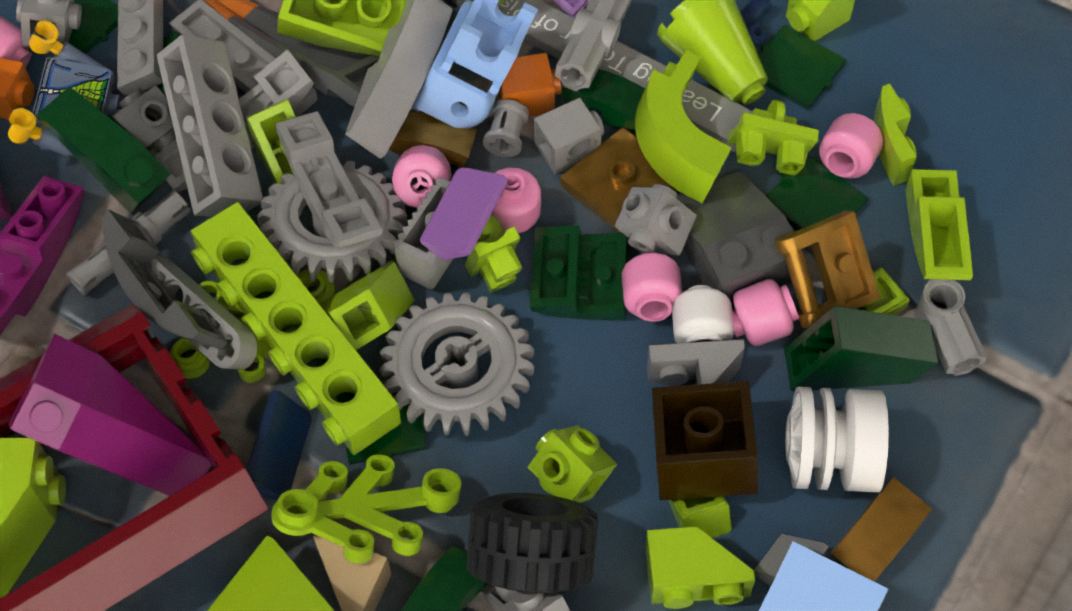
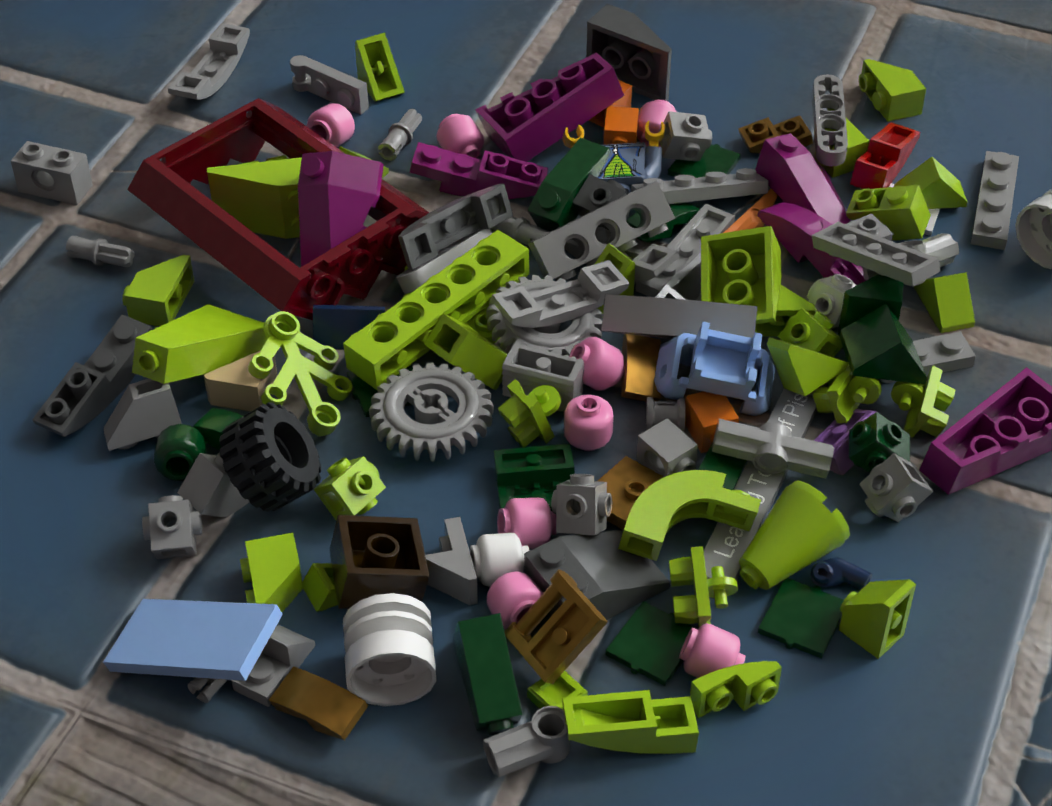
camera: 80 degrees right, 15 degrees down
(463, 213) = (546, 370): medium lavender slope -> none

